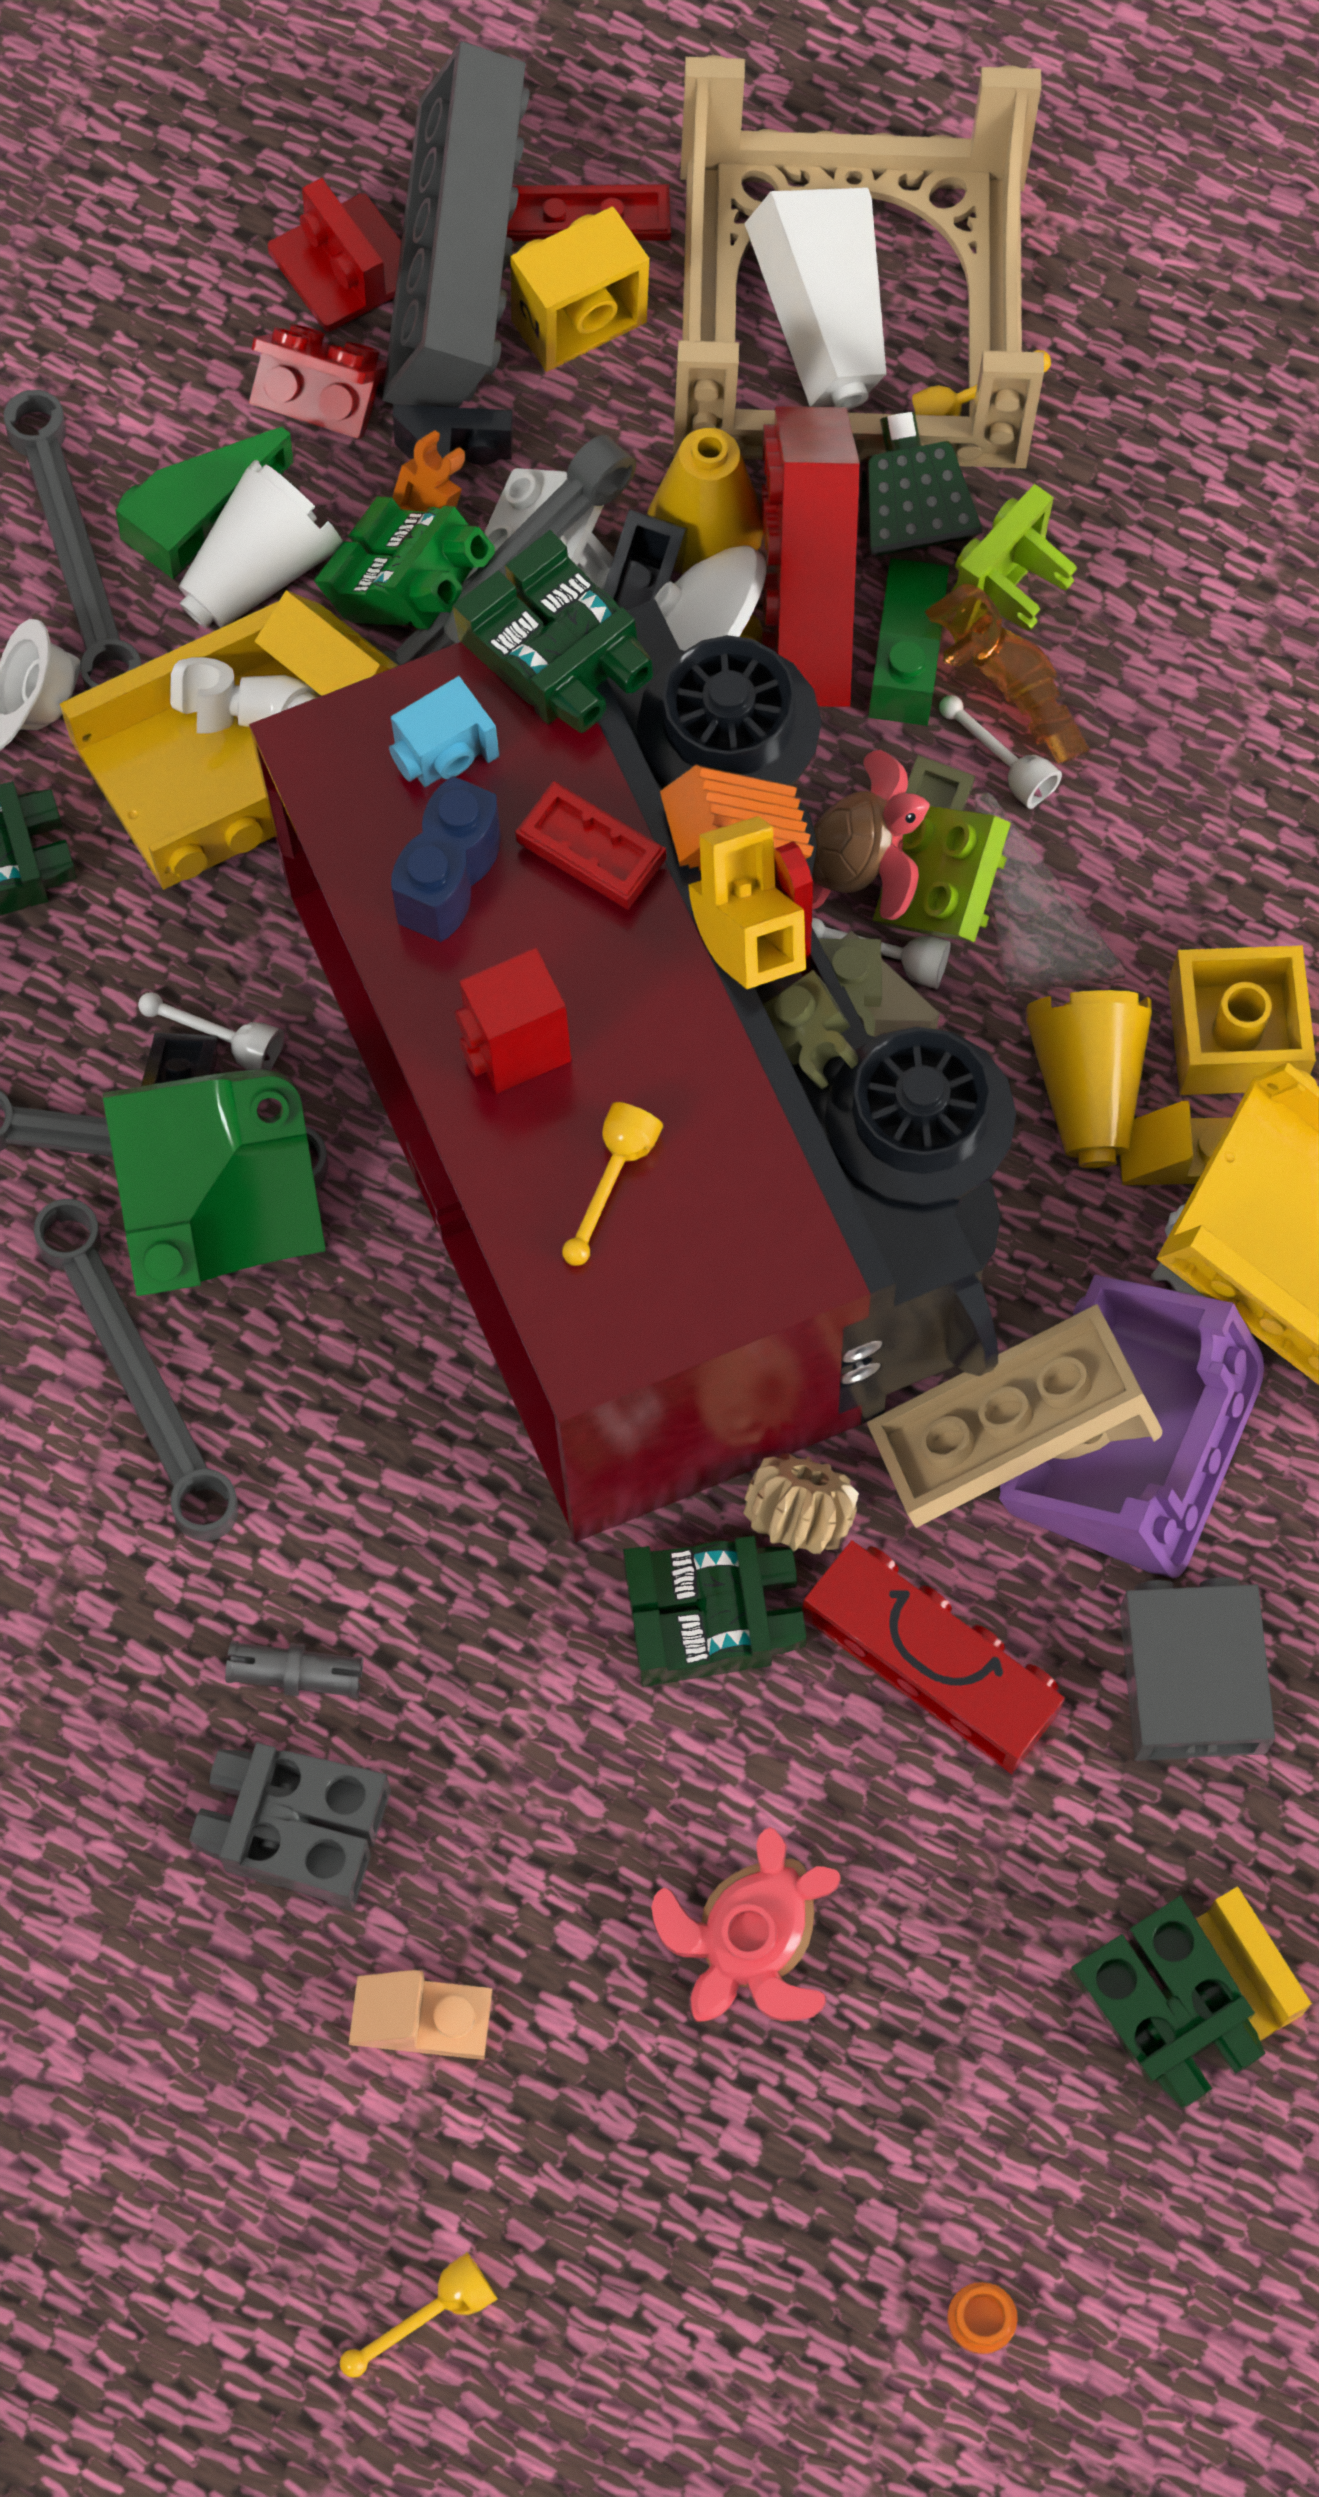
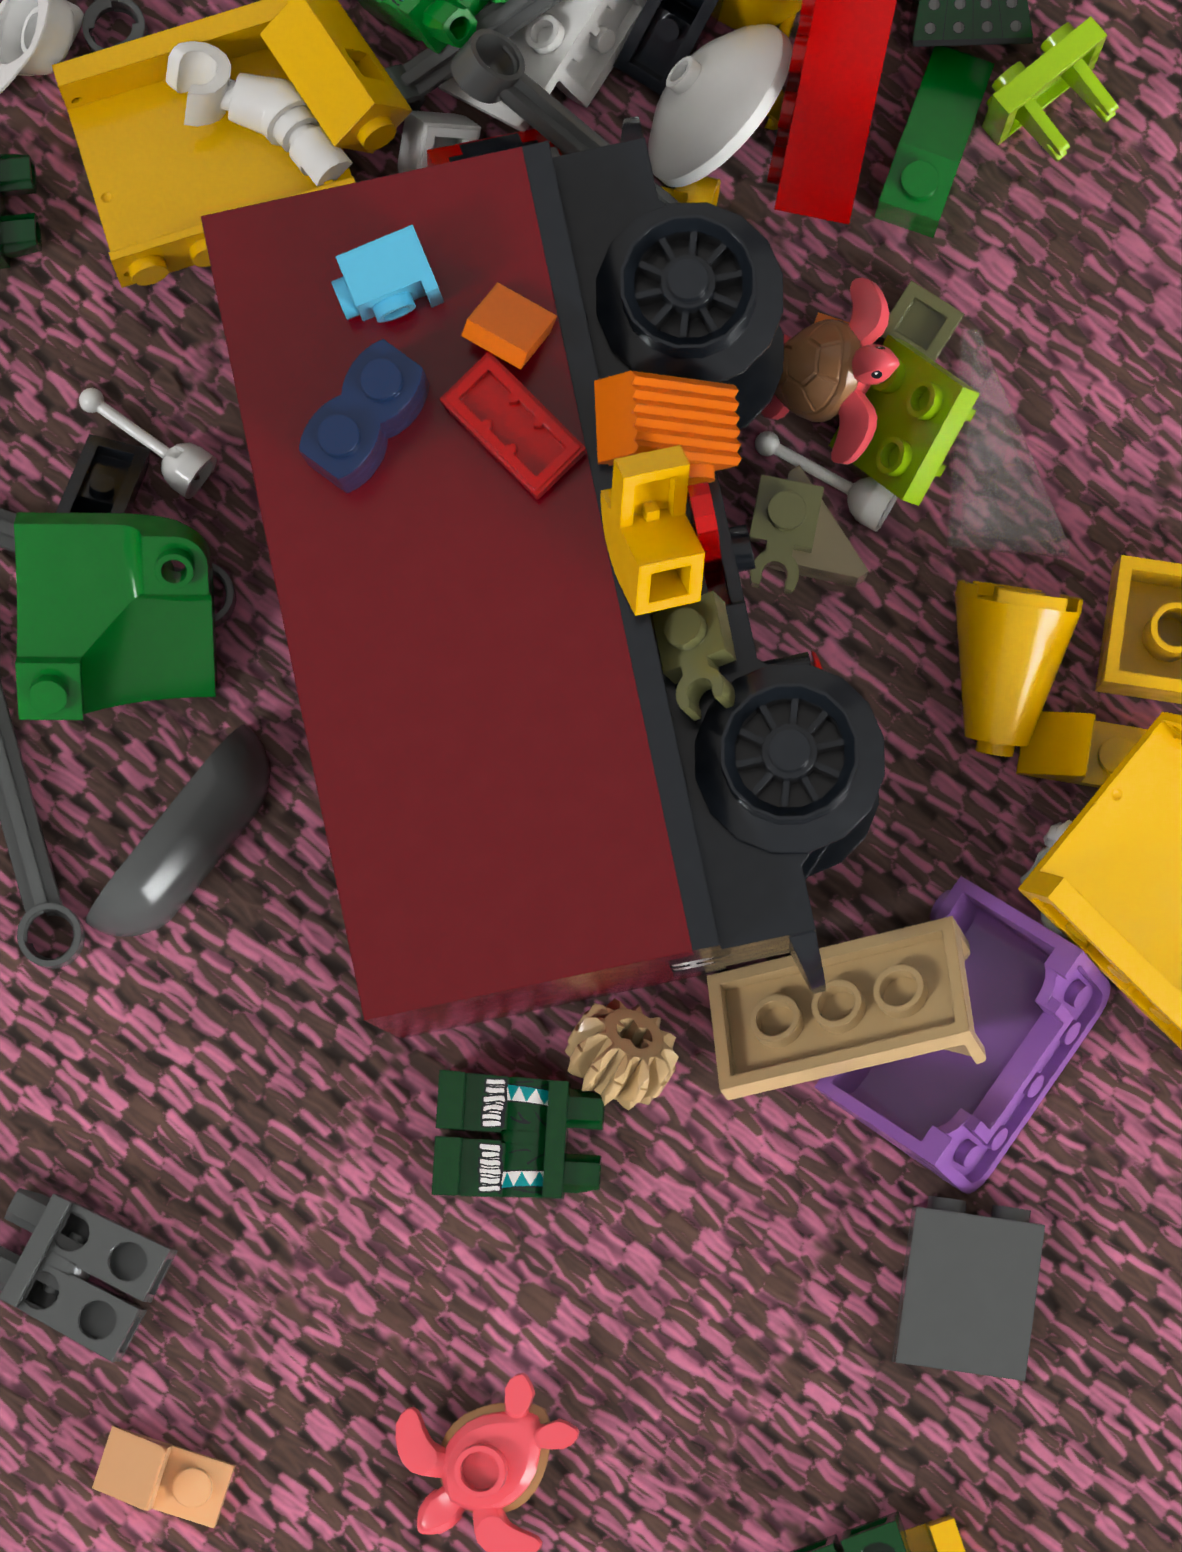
camera: 15 degrees right, 15 degrees up
(294, 1669) = (106, 1117): flat silver pin -> none
(320, 1390) = (186, 839): none -> dark grey brick
(513, 1022) = (391, 614): red brick -> none
(552, 634) = (535, 209): dark green hips -> none
(567, 757) = (509, 325): none -> orange tile
(628, 1136) = (486, 747): yellow hinge -> none
(933, 1655) = (717, 1227): red brick -> none
(1011, 664) = (1032, 199): clear orange piece -> none
(1024, 773) = (1020, 314): white hinge -> none

